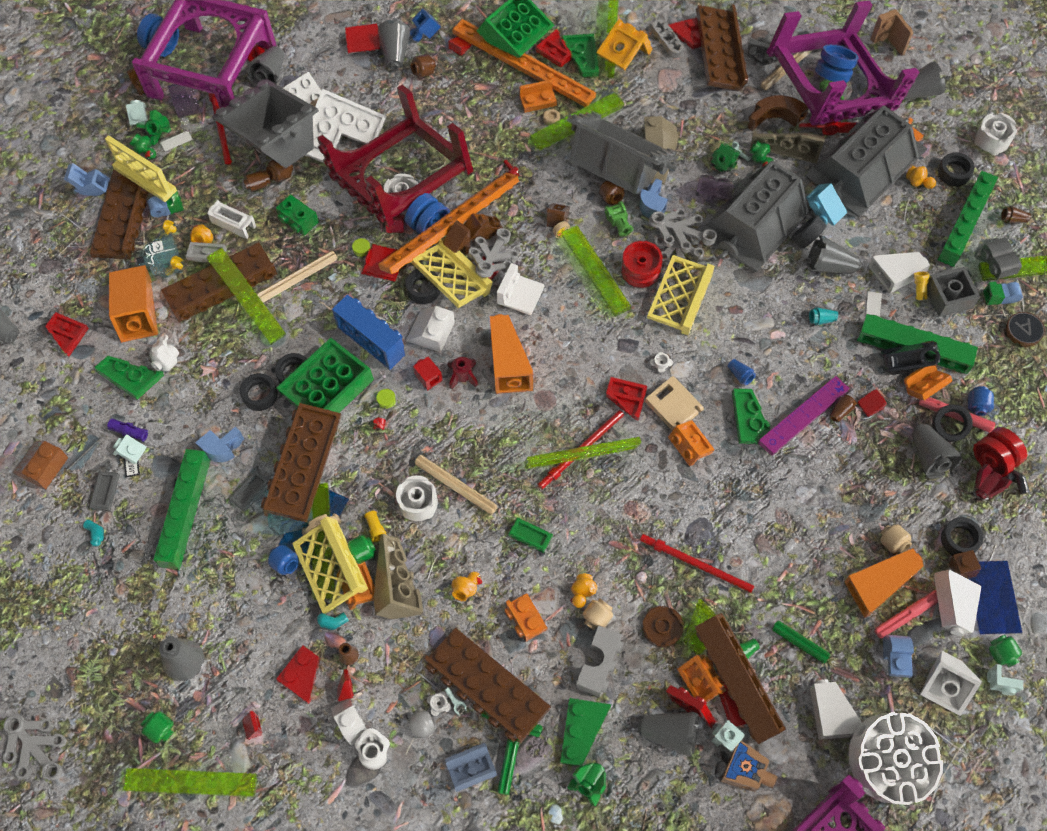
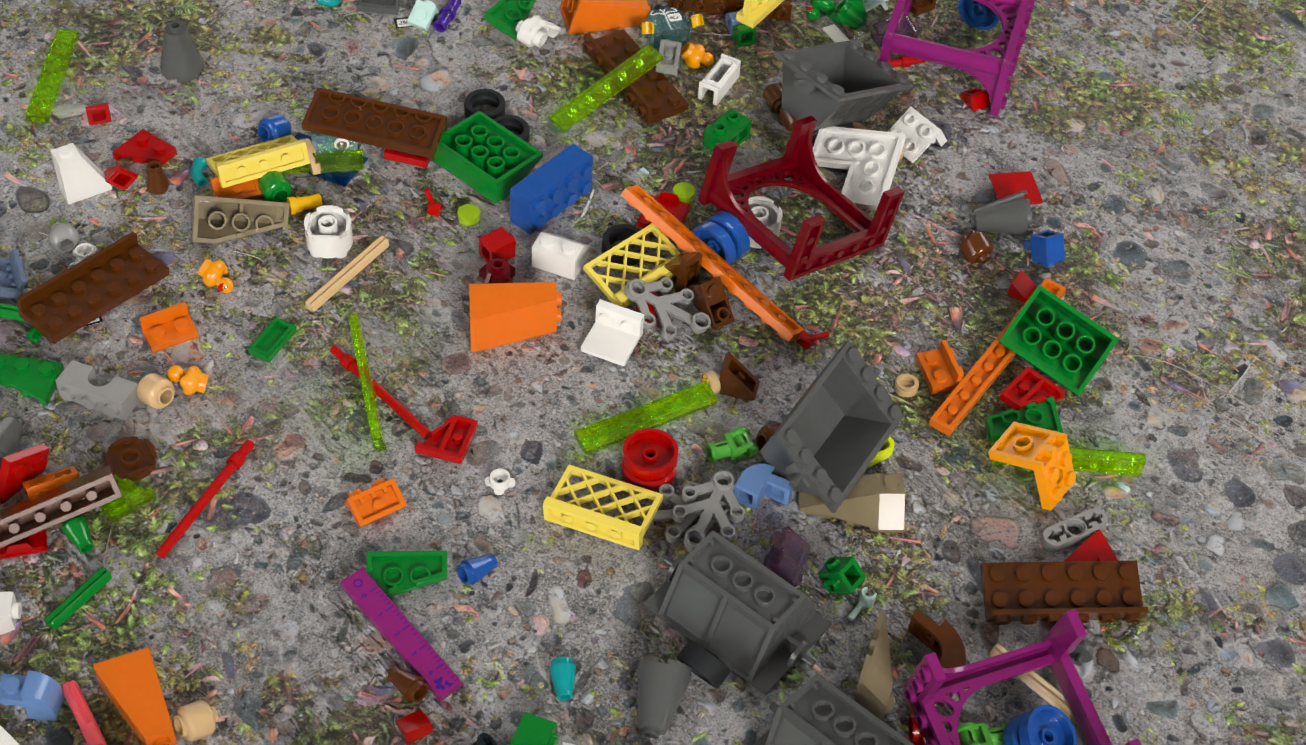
camera: 85 degrees right, 15 degrees down
(157, 727) = (112, 47): green head -> none
(182, 510) = (345, 53): green brick -> none
(220, 449) = (420, 79): medium blue brick -> none
(266, 66) = (953, 100): dark grey cone -> none
(297, 276) = (641, 138): tan axle -> none
(372, 749) = (43, 195): white head -> none
(562, 128) = (917, 428): clear neon green plate -> none
(677, 406) = (431, 491): tan container -> none
(759, 153) = (857, 624): green animal -> none
(826, 203) = (753, 692): medium azure brick -> none

